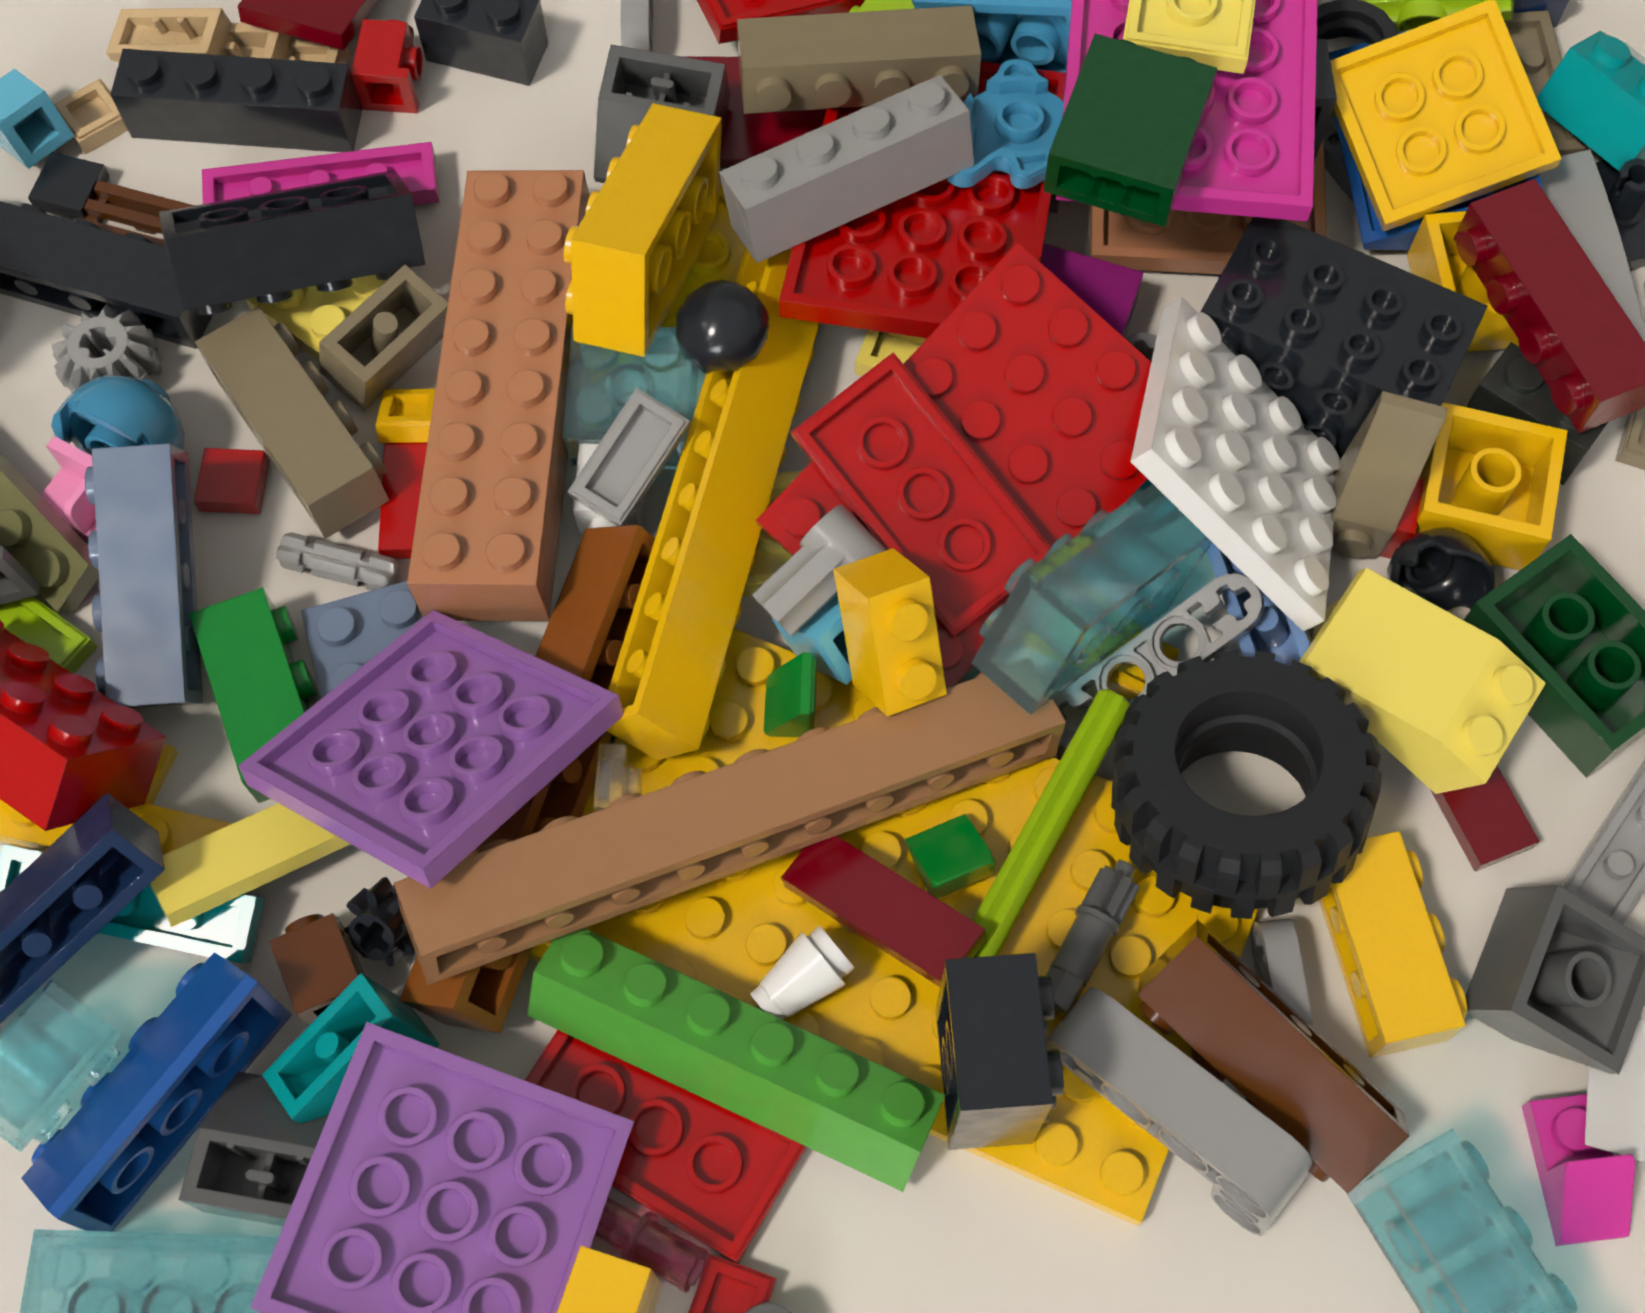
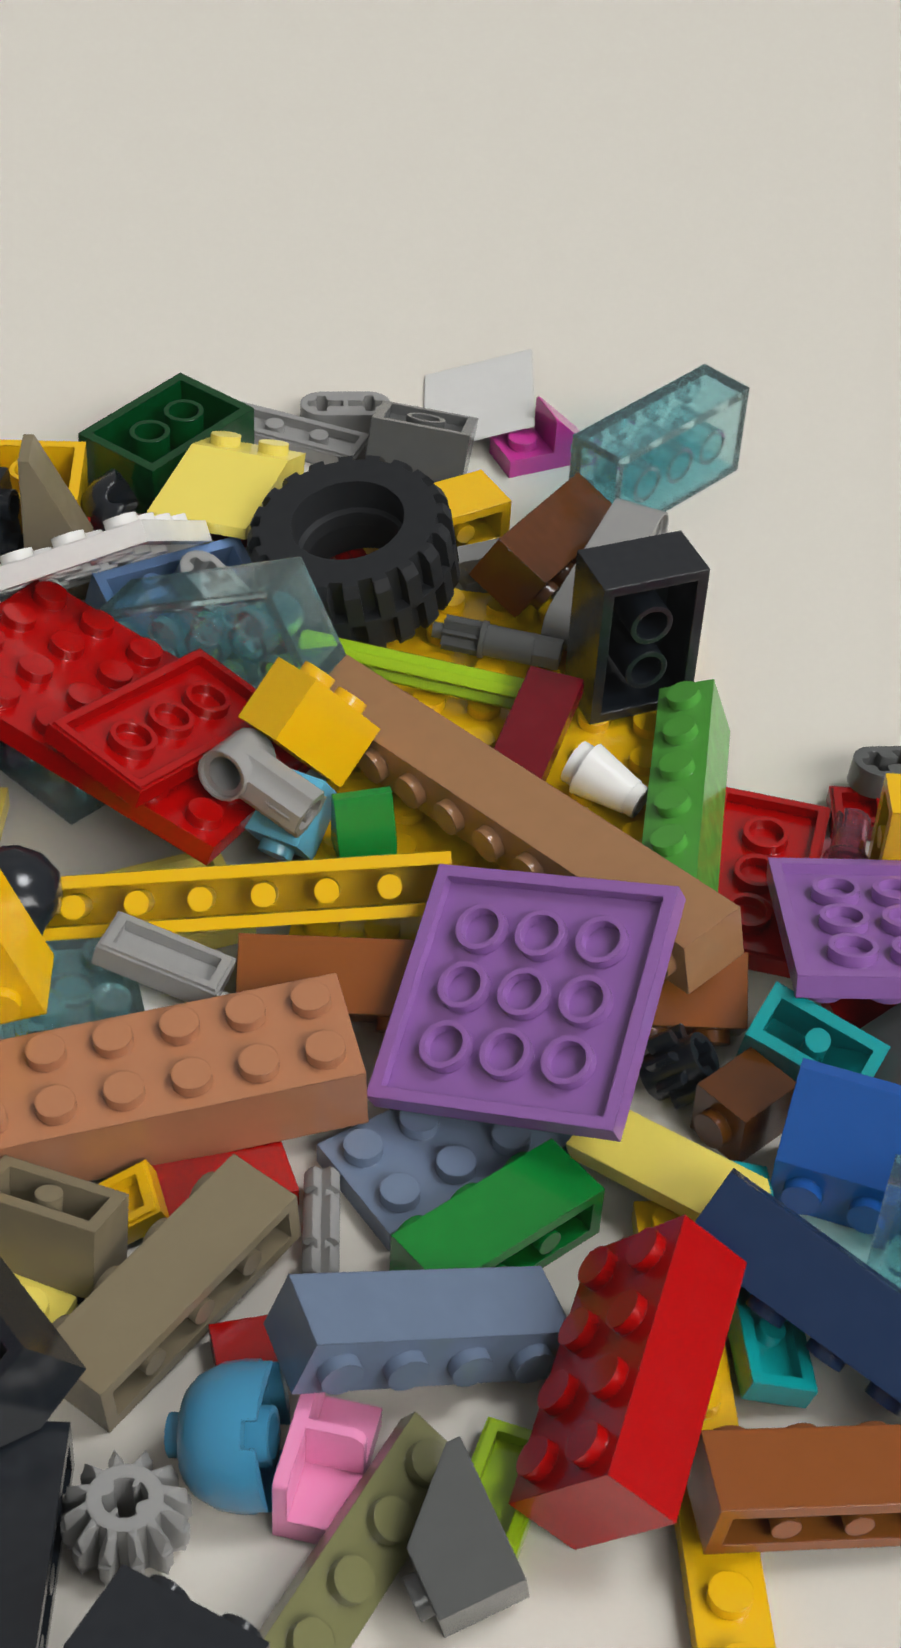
camera: 110 degrees left, 25 degrees down
(950, 856) = (474, 711): green slope -> none

